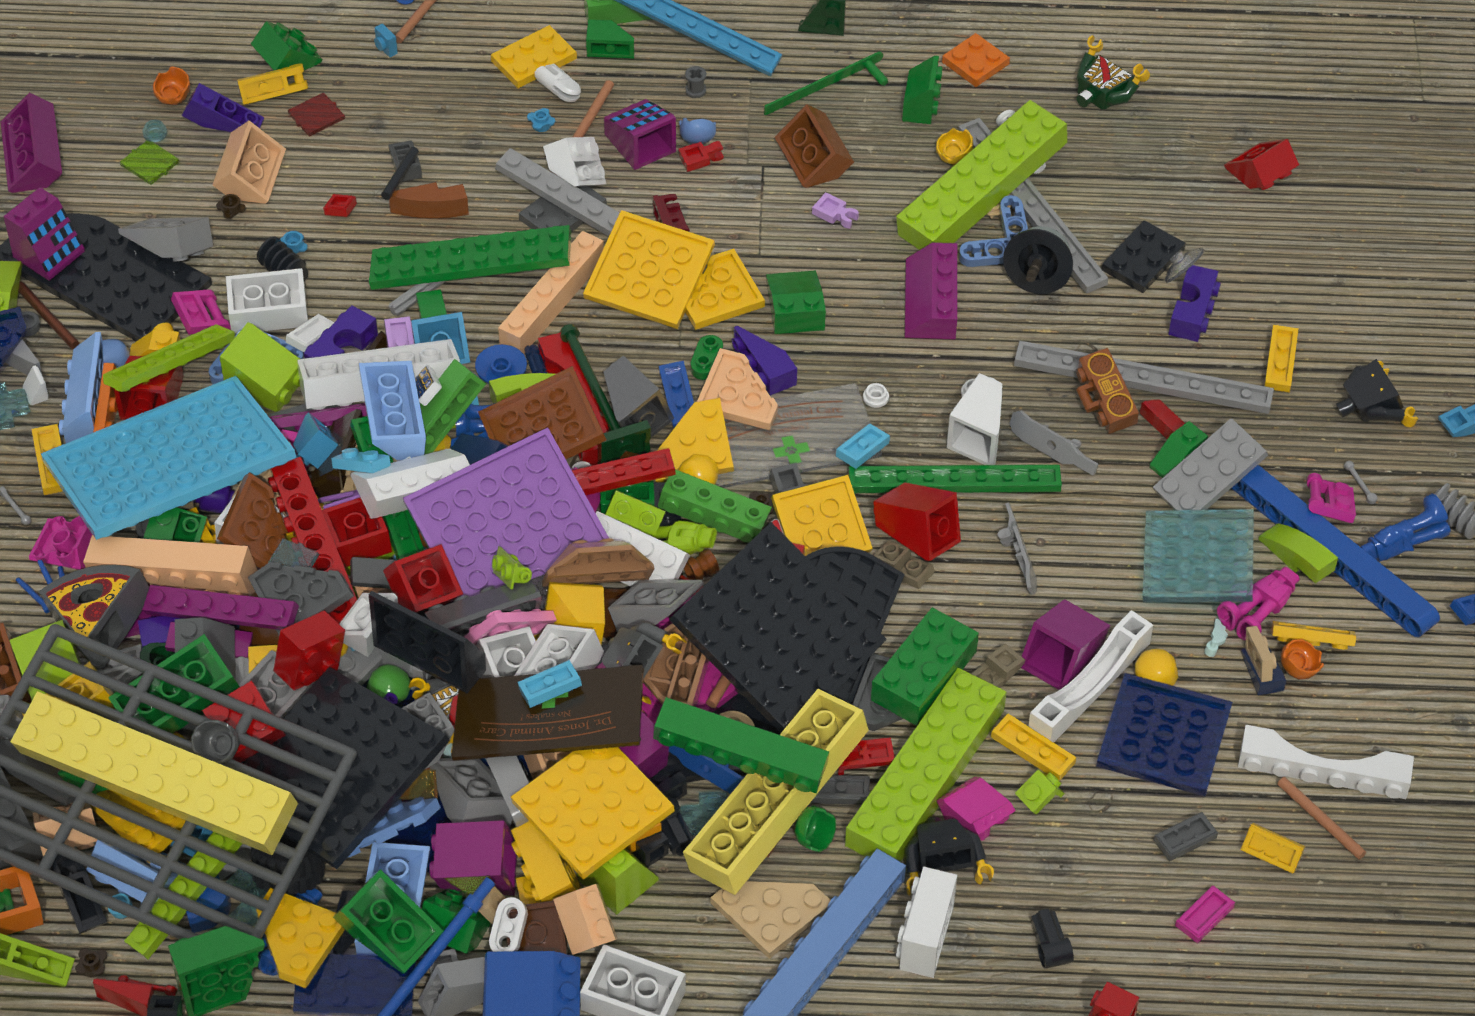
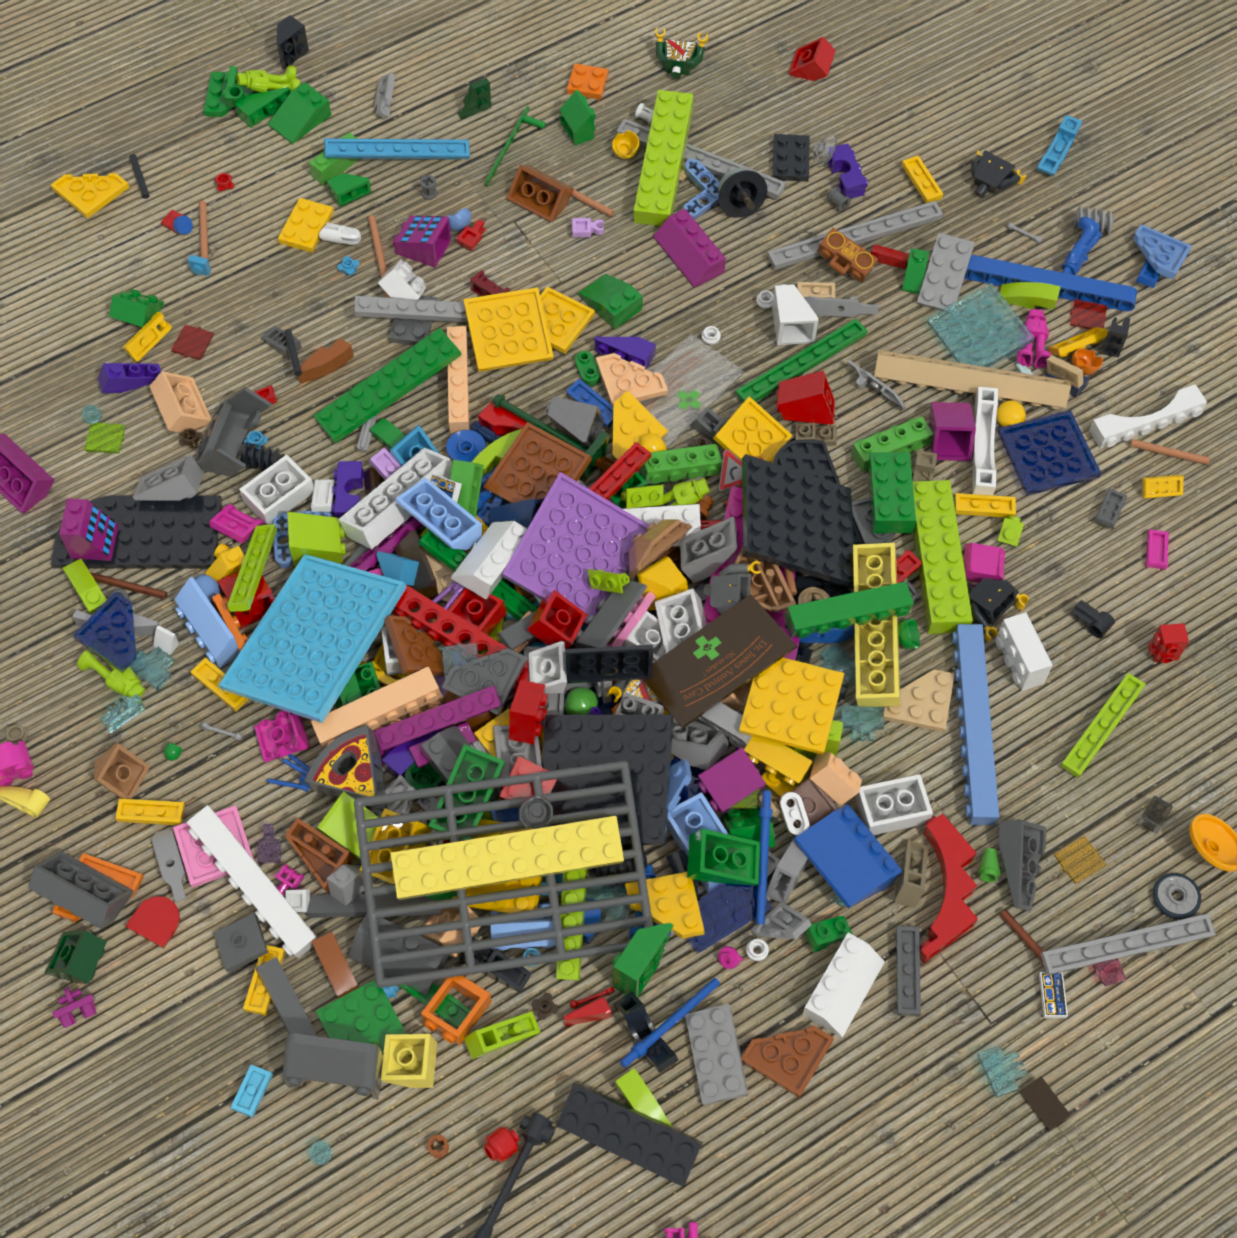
camera: 35 degrees left, 10 degrees up
(172, 86) = (78, 375): orange hair -> none
(277, 215) = (227, 431): none -> dark grey windscreen
(361, 461) = (449, 565): medium azure plate -> none
(549, 683) = (706, 641): medium azure plate -> none
(681, 888) = (862, 720): none -> clear light blue hinge
(862, 446) = (734, 372): medium azure plate -> none
(865, 187) = (587, 200): none -> nougat bar
(994, 620) = (902, 438): none -> bright green brick
(1041, 411) = (817, 289): none -> tan plate
(1126, 592) = (968, 378): none -> tan brick
(1158, 329) = (838, 199): none -> dark grey bush
(1338, 498) = (1023, 251): dark pink plate -> none
(1358, 614) = (1088, 315): none -> clear red piece
(1358, 651) = (1115, 338): none -> black hinge

